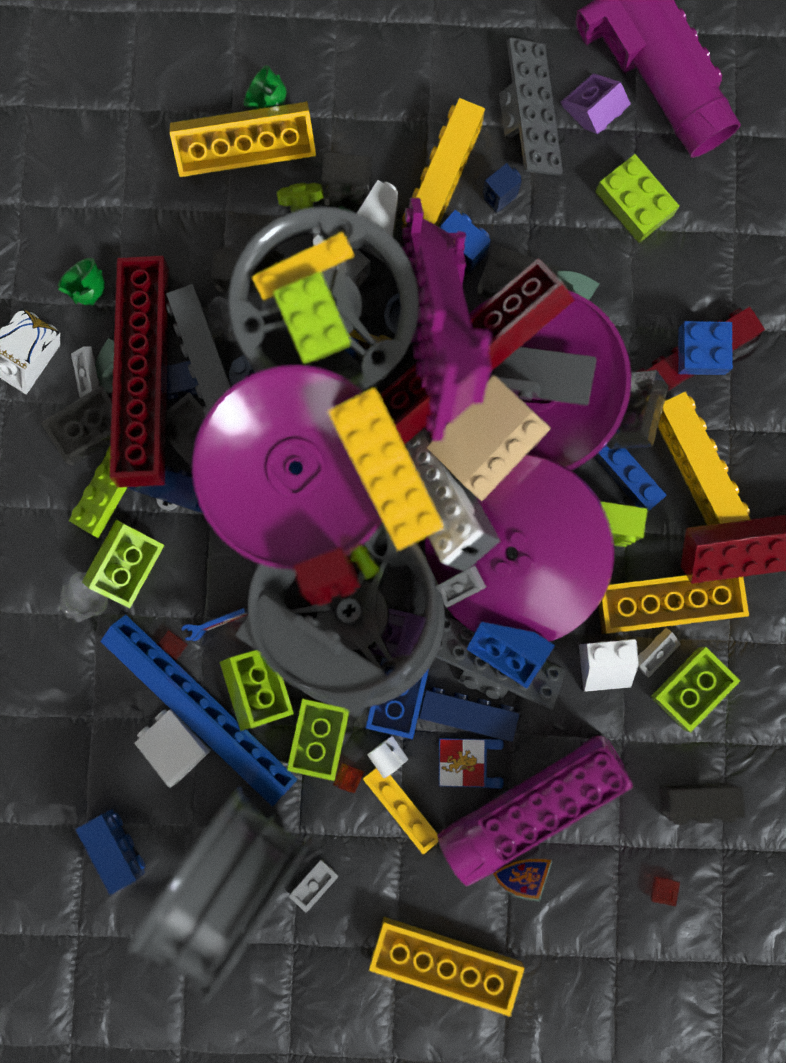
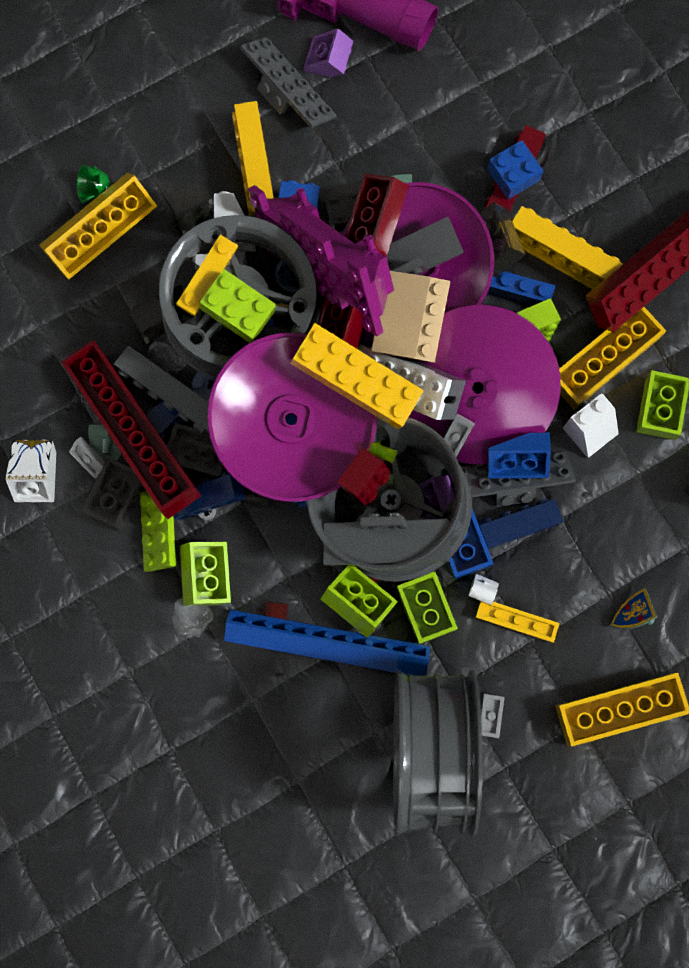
camera: 30 degrees left, 5 degrees down
(83, 282) = (46, 395): green helmet -> none
(111, 851) = (331, 784): blue brick -> none
(171, 747) = (324, 681): white slope -> none
(199, 631) = (290, 585): blue flag -> none
(300, 196) = (163, 240): lime plant -> none
(348, 778) = (465, 623): clear red plate -> none
(465, 762) = (539, 559): flag -> none
(501, 187) = (302, 149): dark blue brick -> none
(534, 810) = (611, 555): magenta piece -> none
(637, 198) = (399, 100): lime brick -> none
(657, 652) = (621, 396): light grey plate -> none

